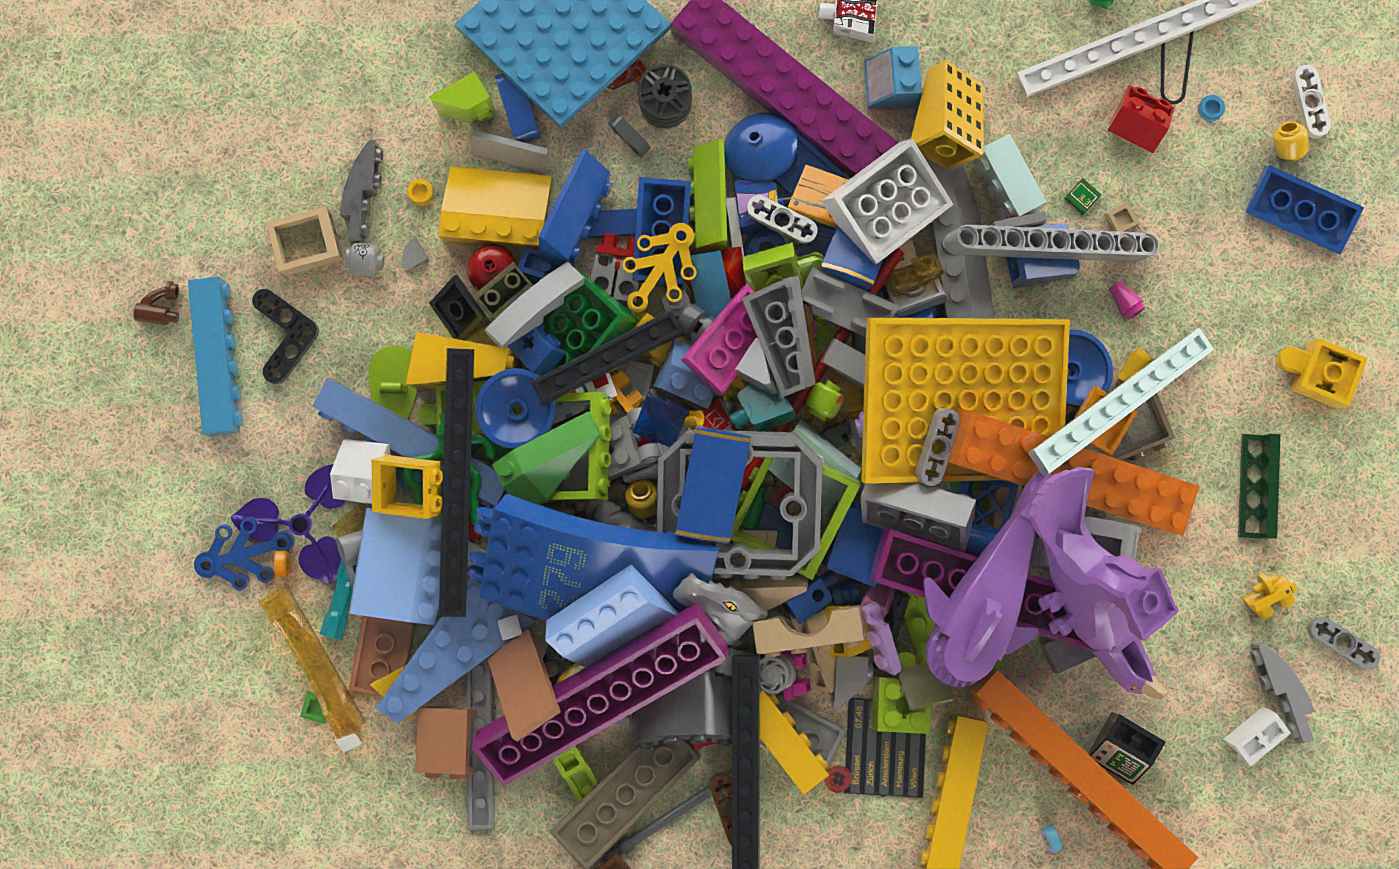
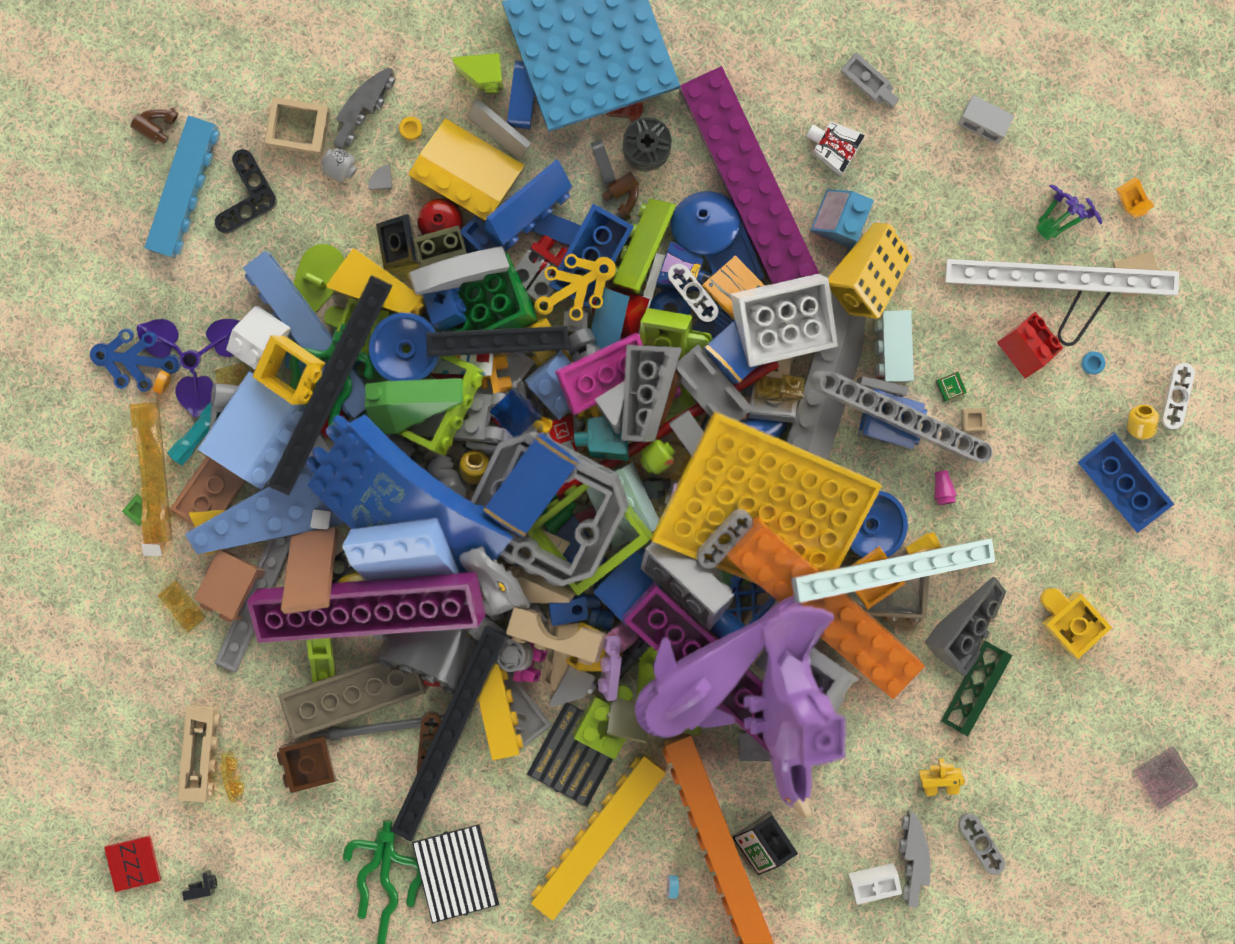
camera: 25 degrees right, 5 degrees up
(406, 786) = (181, 605): none -> clear yellow slope
(656, 155) = (620, 187): none -> reddish brown plant
(838, 779) = (527, 761): clear red tile -> none
(1215, 438) = (961, 632): none -> dark grey wedge

